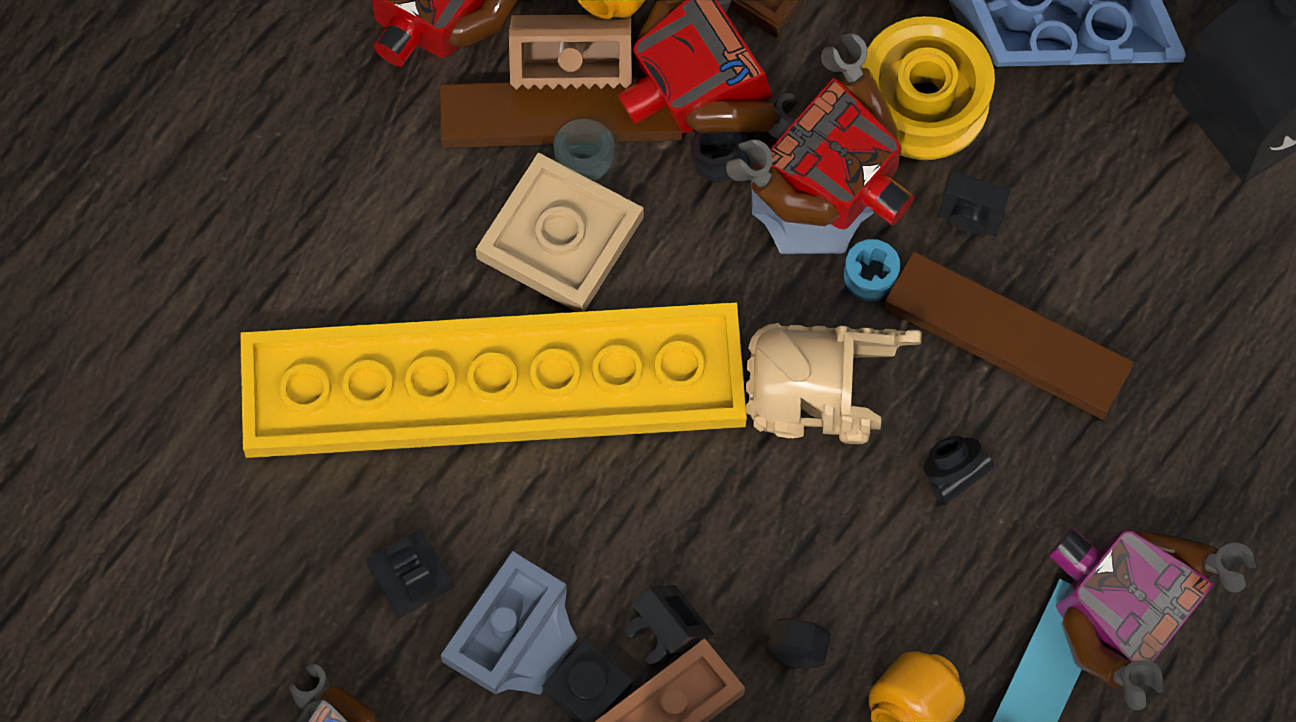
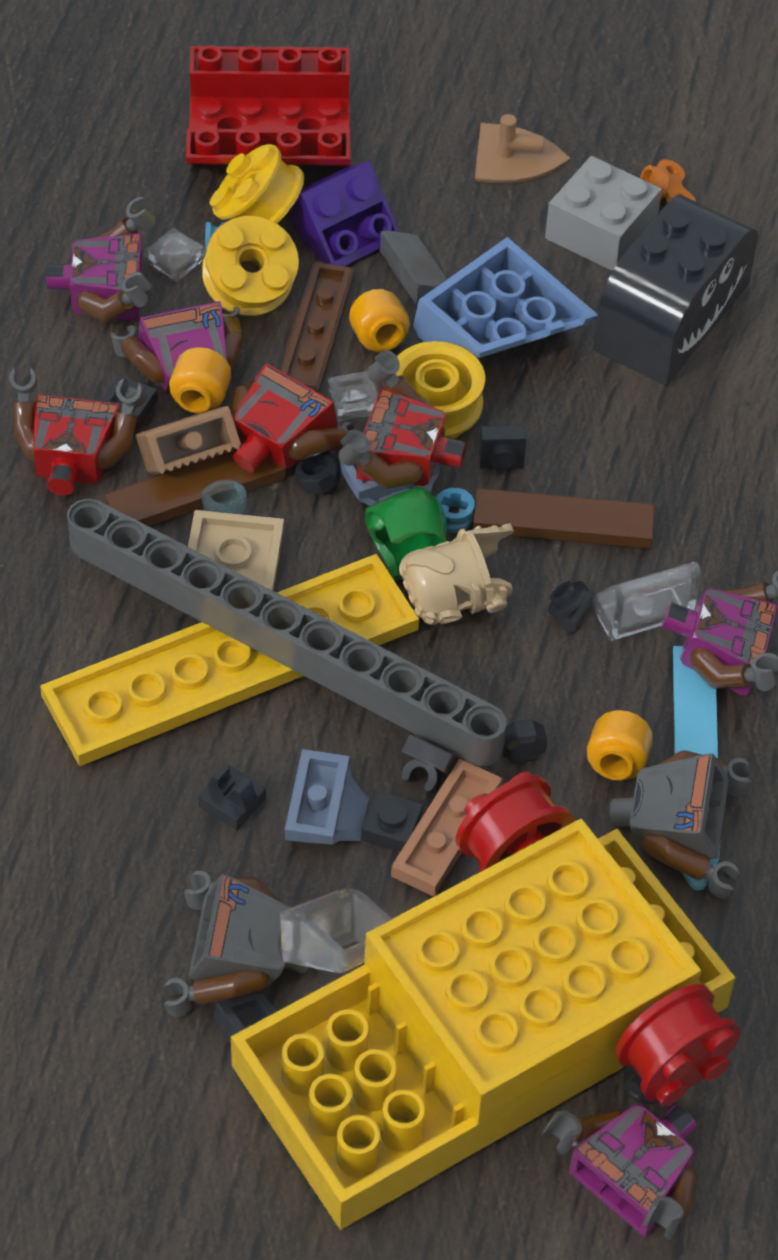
camera: 25 degrees left, 15 degrees down
(566, 403) = (288, 632): none -> dark grey beam
(795, 278) = (405, 524): none -> green piece
(805, 52) = (352, 395): none -> clear plate
(1054, 502) = (644, 601): none -> clear tile

